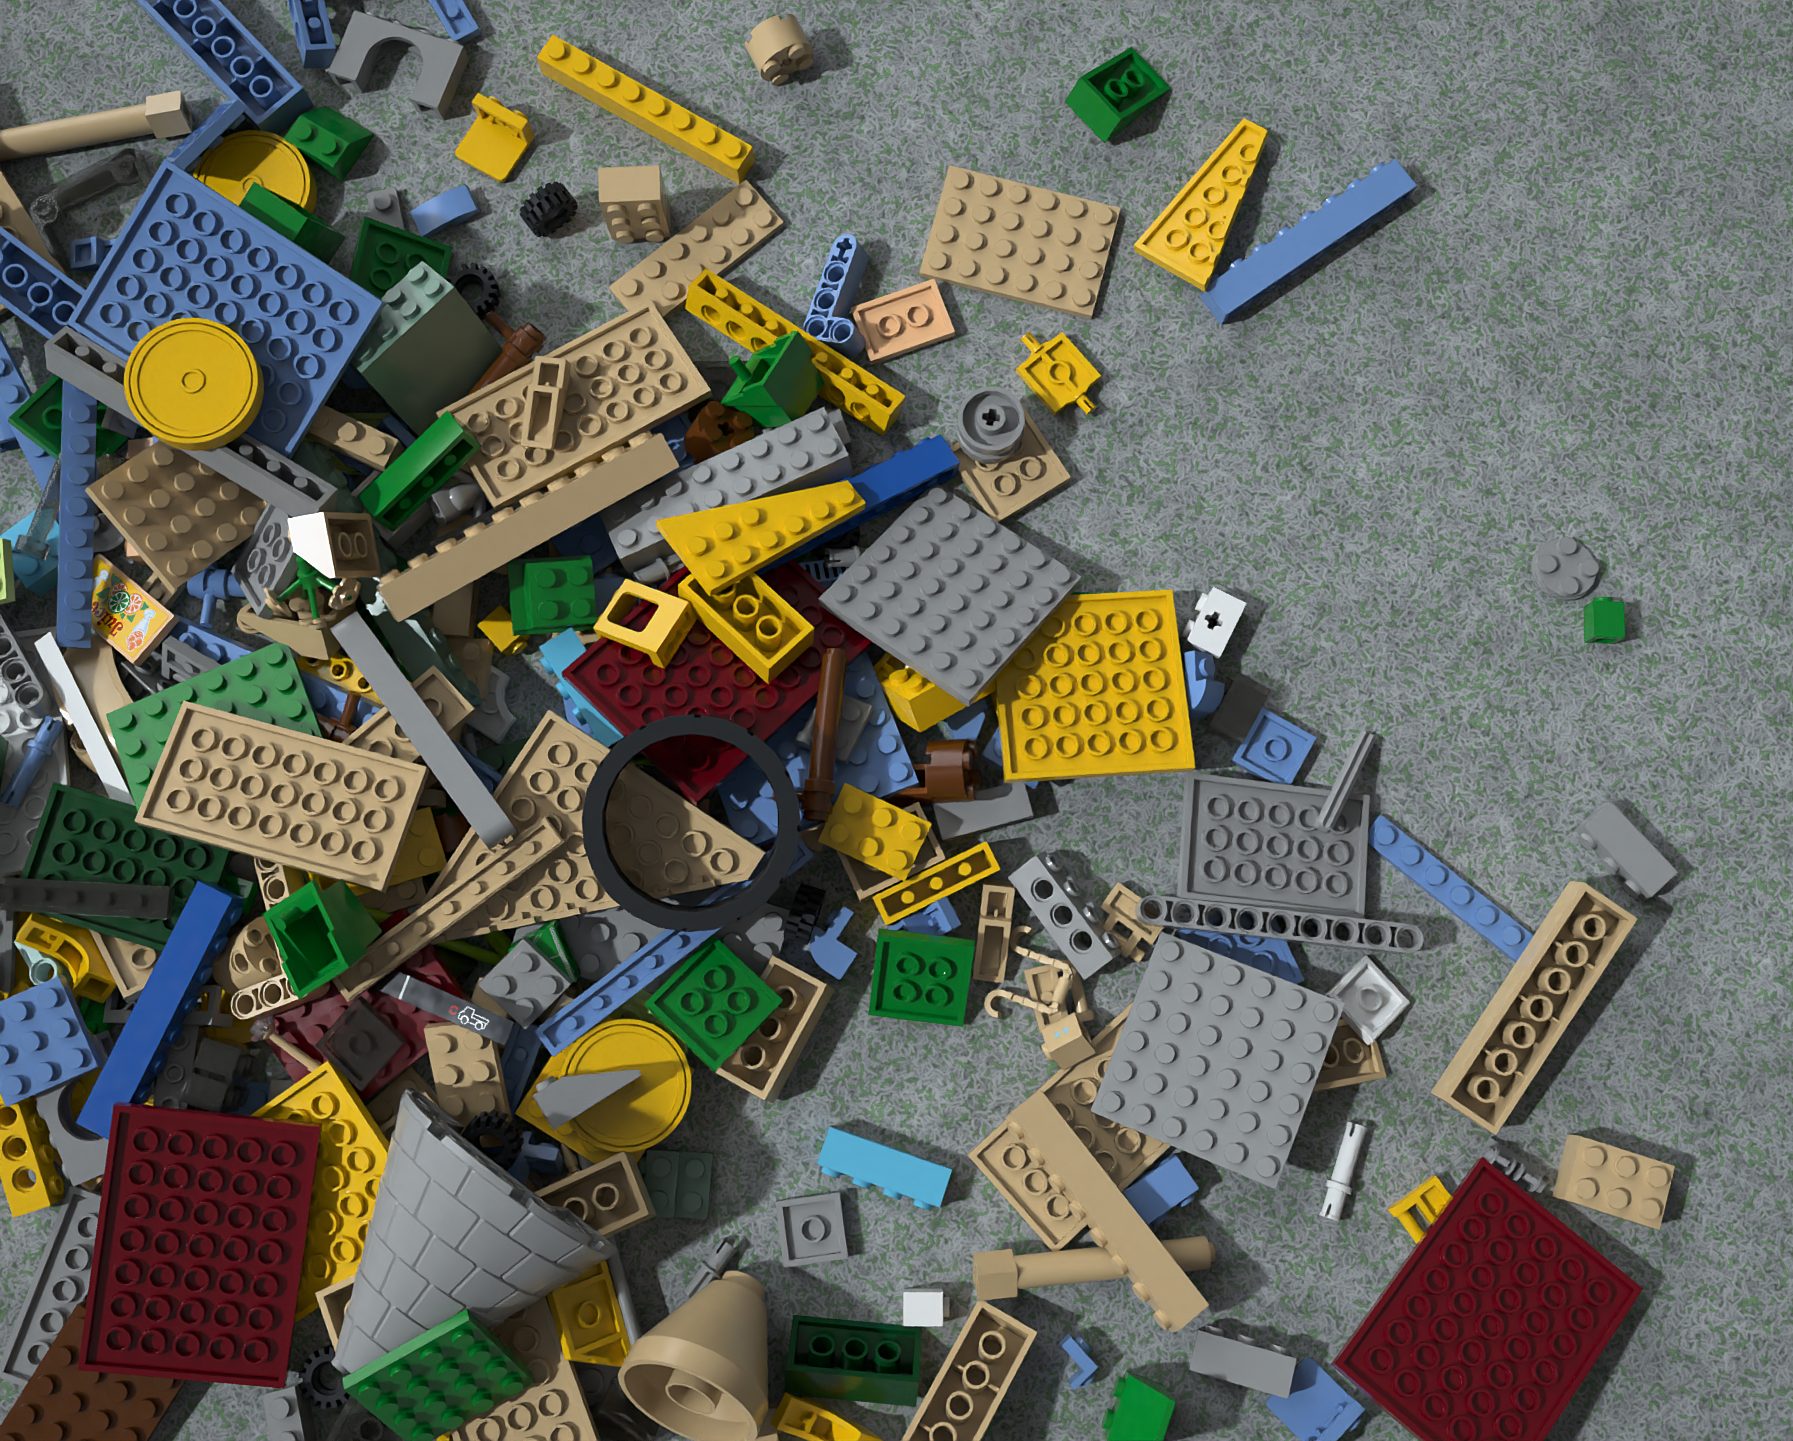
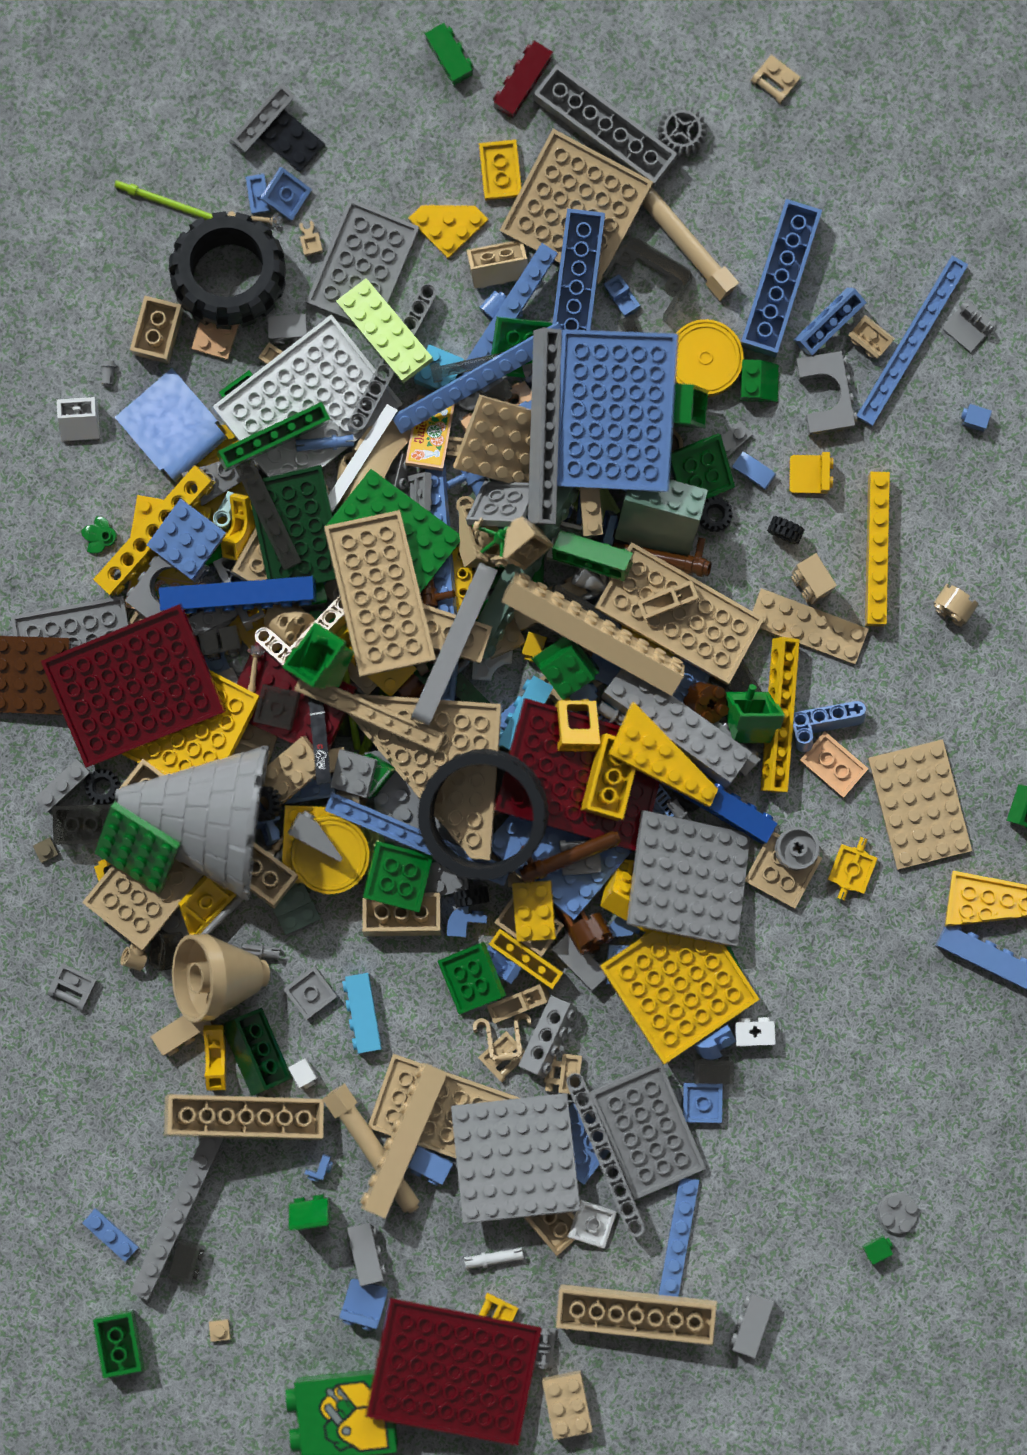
camera: 65 degrees right, 5 degrees up
(193, 384) = (566, 420): yellow brick -> none
(207, 134) = (718, 315): medium blue plate -> none
(1067, 1041) = (481, 1074): tan brick -> none
(1345, 782) = (675, 1150): light grey axle -> none

